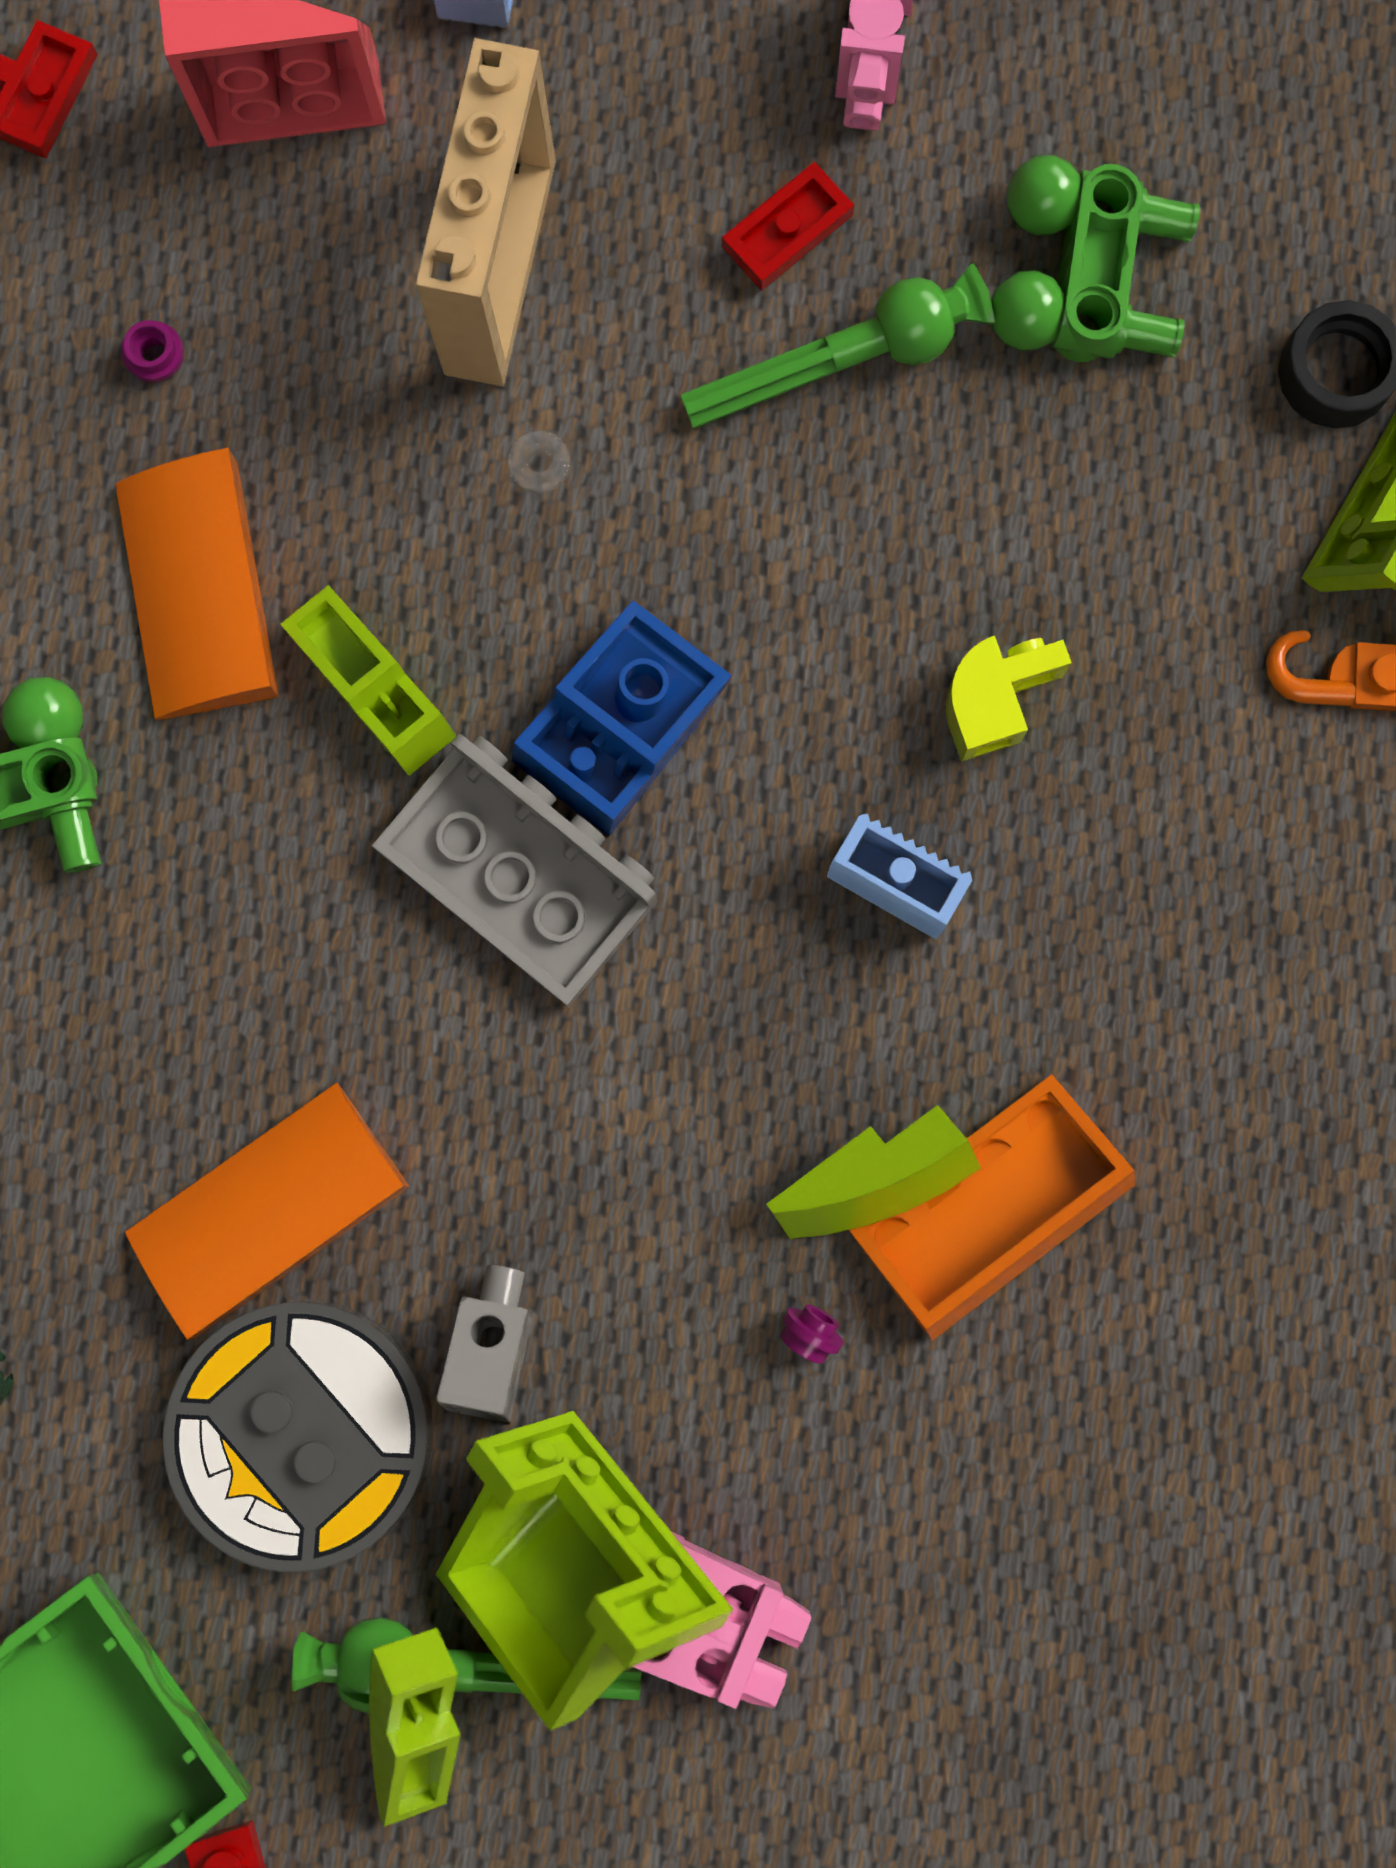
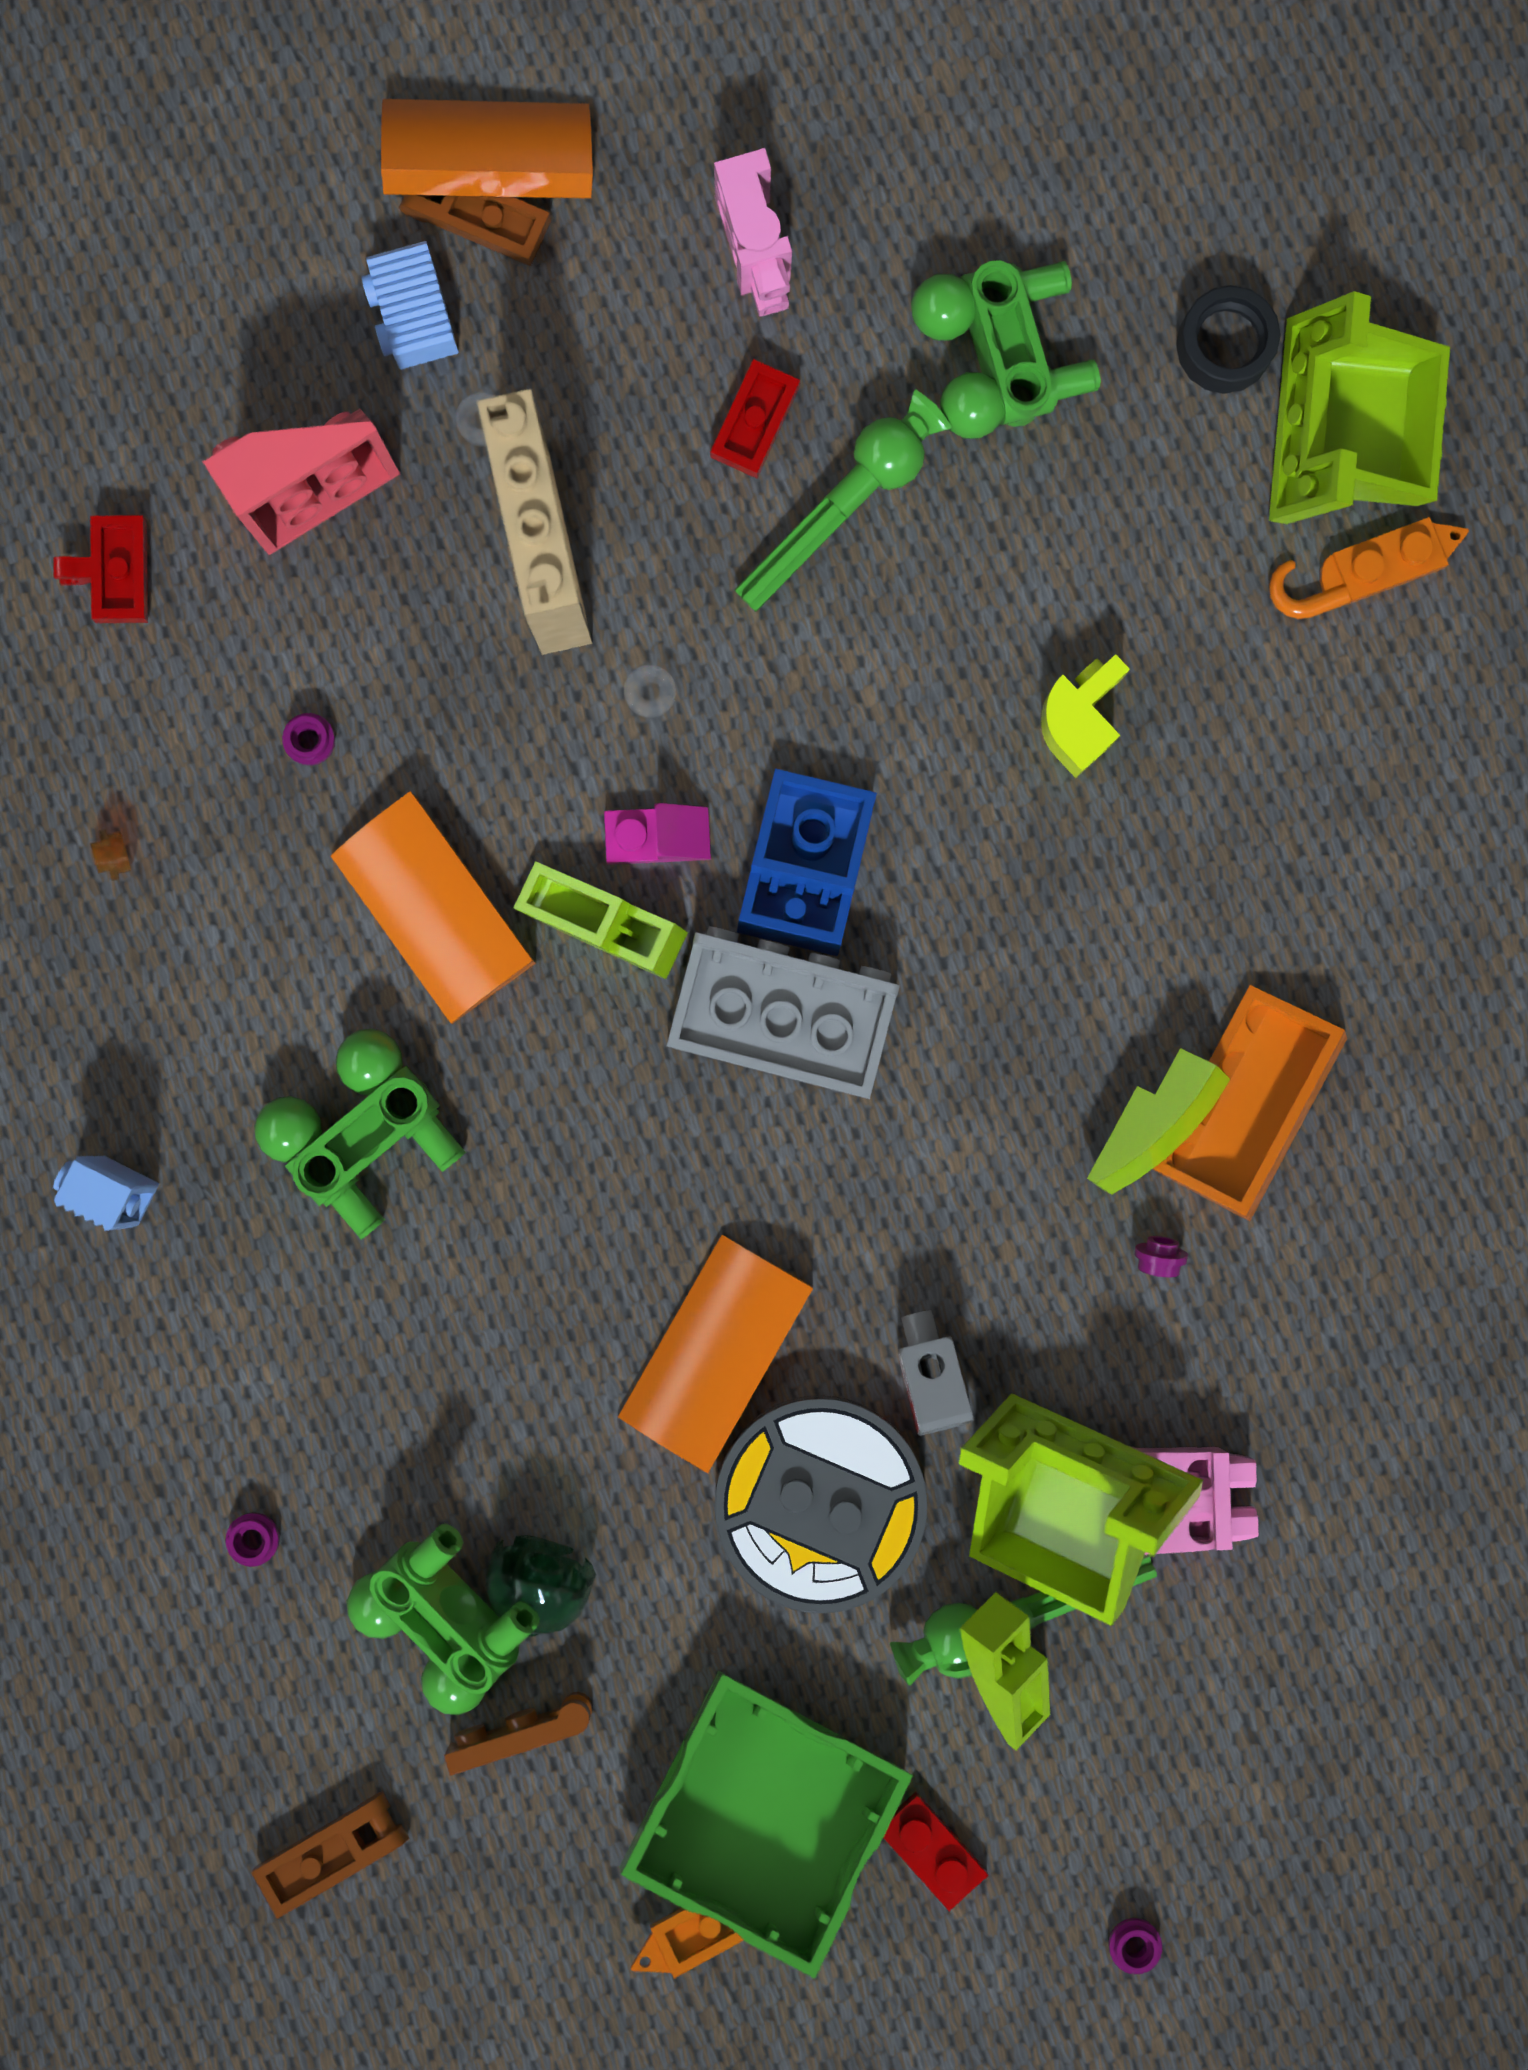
camera: 30 degrees left, 5 degrees up
(475, 616) = (657, 834): none -> dark pink slope
(899, 876) = (1074, 890): light blue brick -> none

